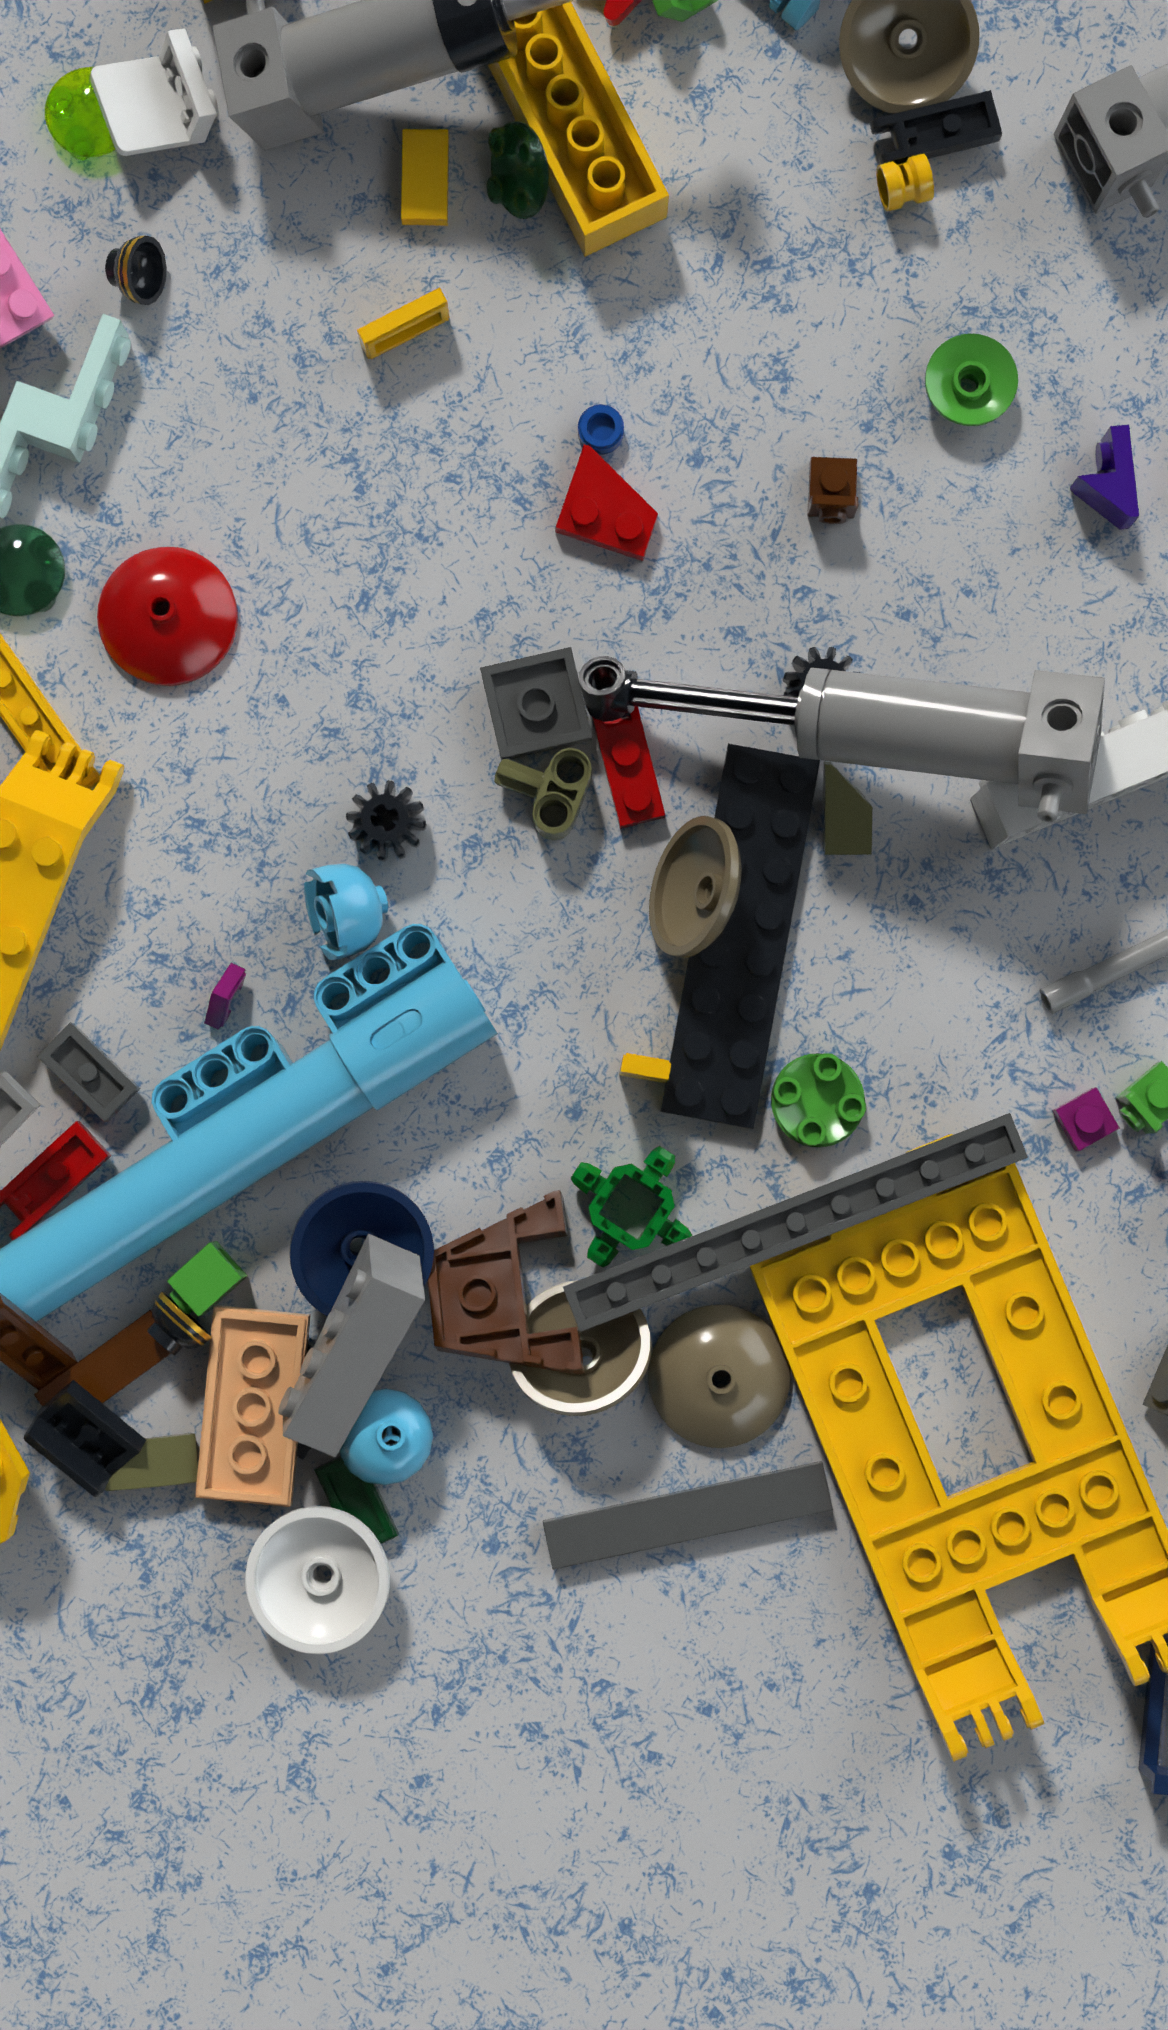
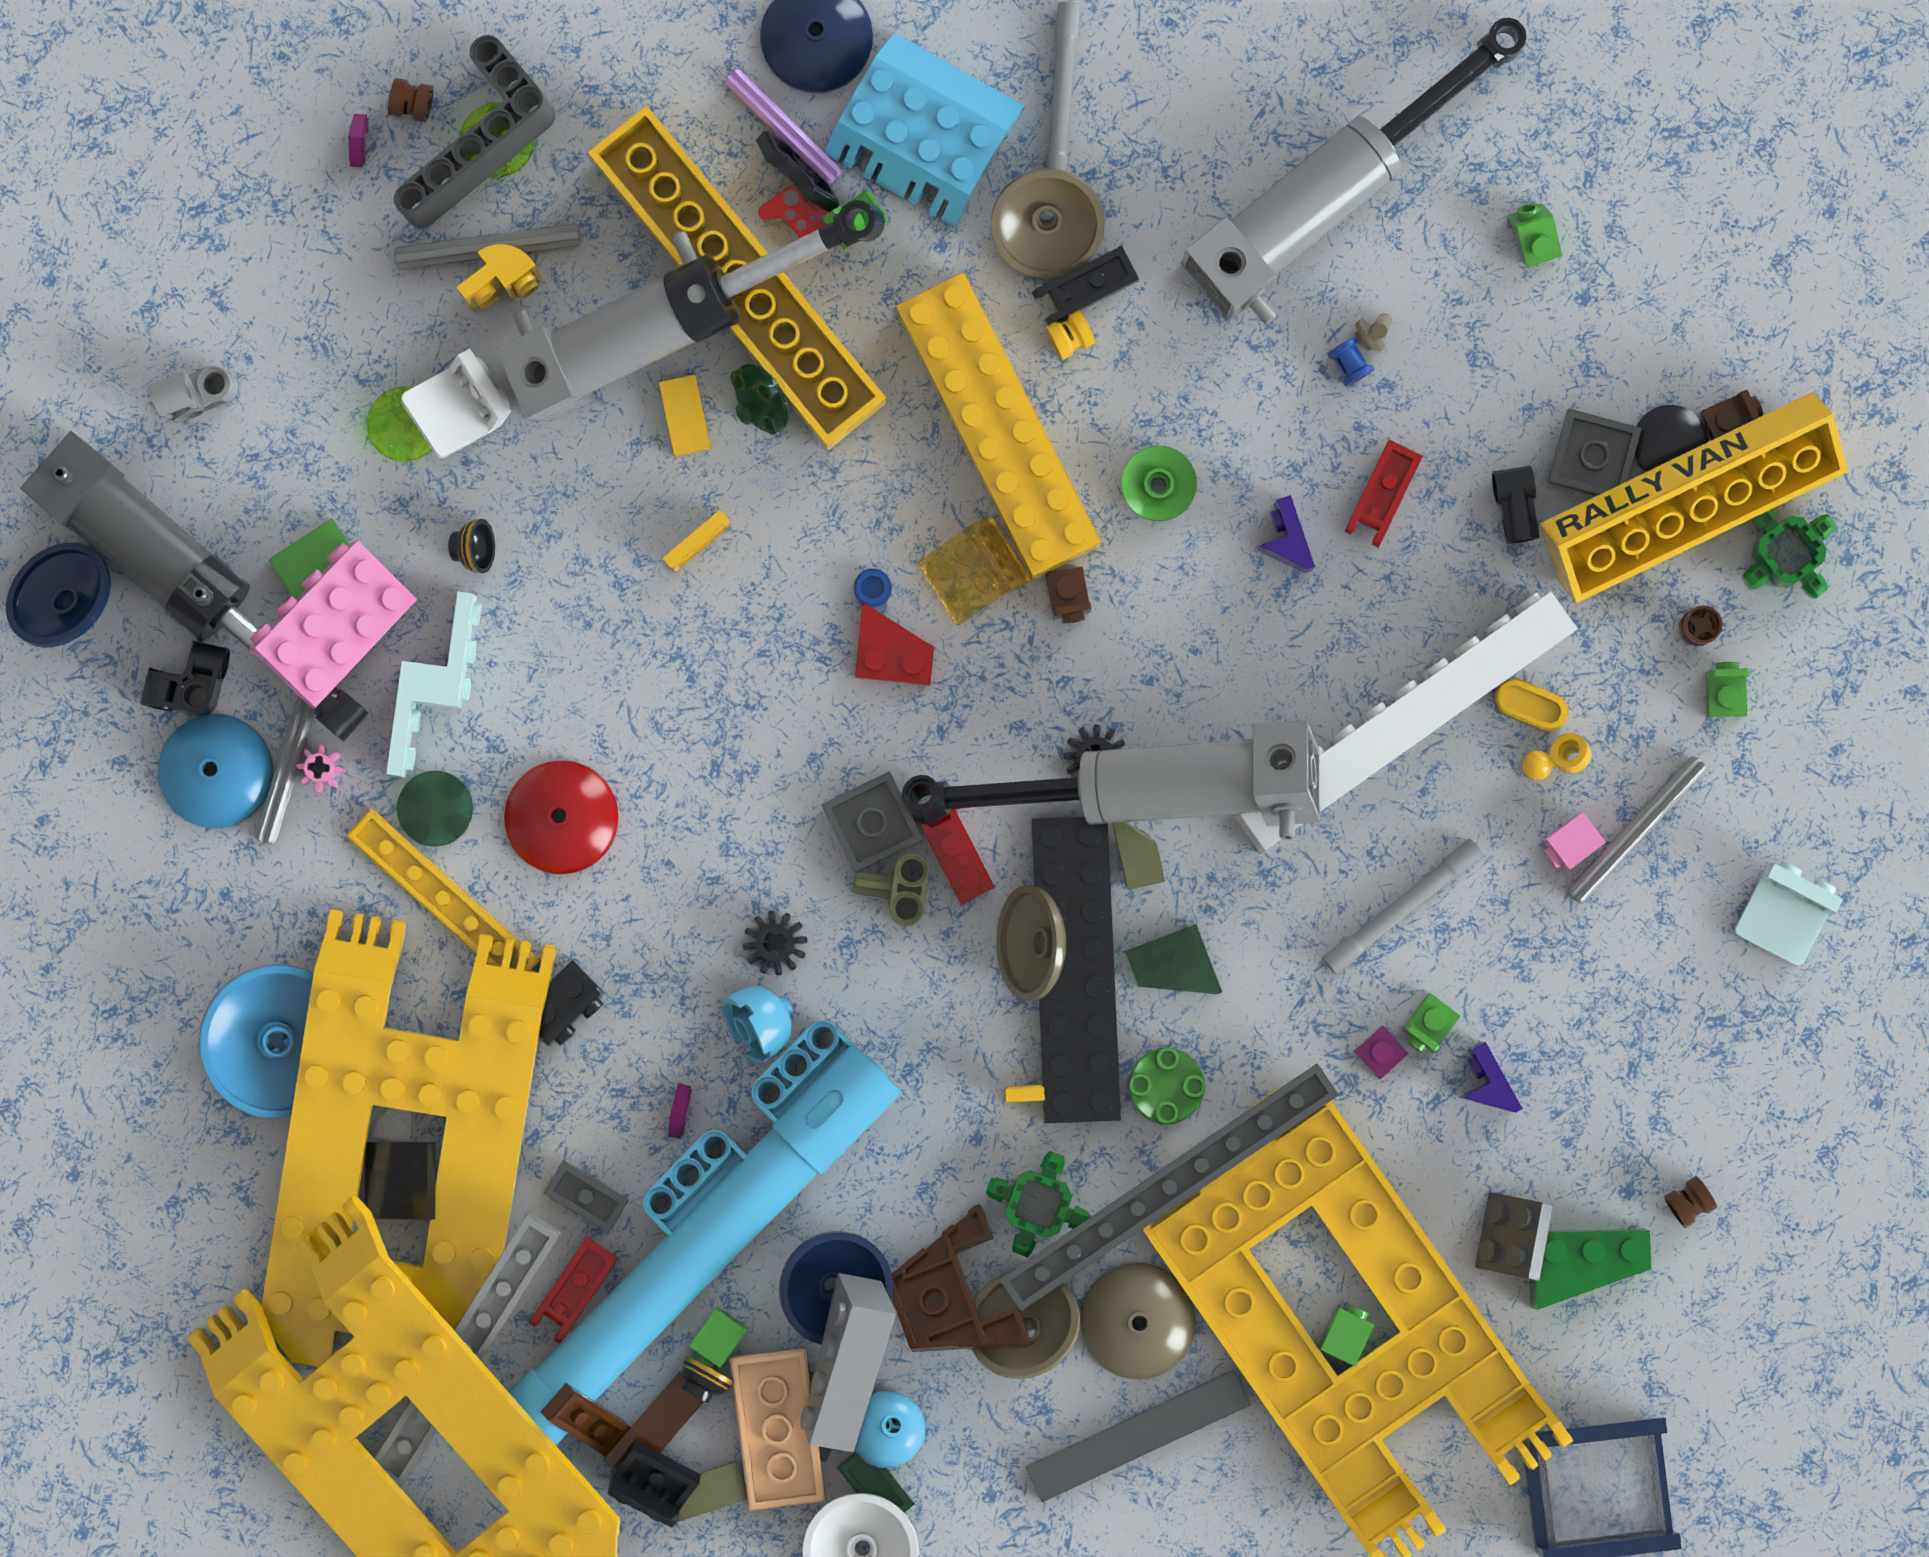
camera: 15 degrees left, 0 degrees up
(121, 833) = (568, 998): none -> black bracket
(725, 432) = (973, 570): none -> clear yellow bracket
(794, 268) = (998, 426): none -> yellow brick
(860, 955) = (1174, 963): none -> clear green wing
(970, 1450) = (1346, 1334): none -> bright green brick

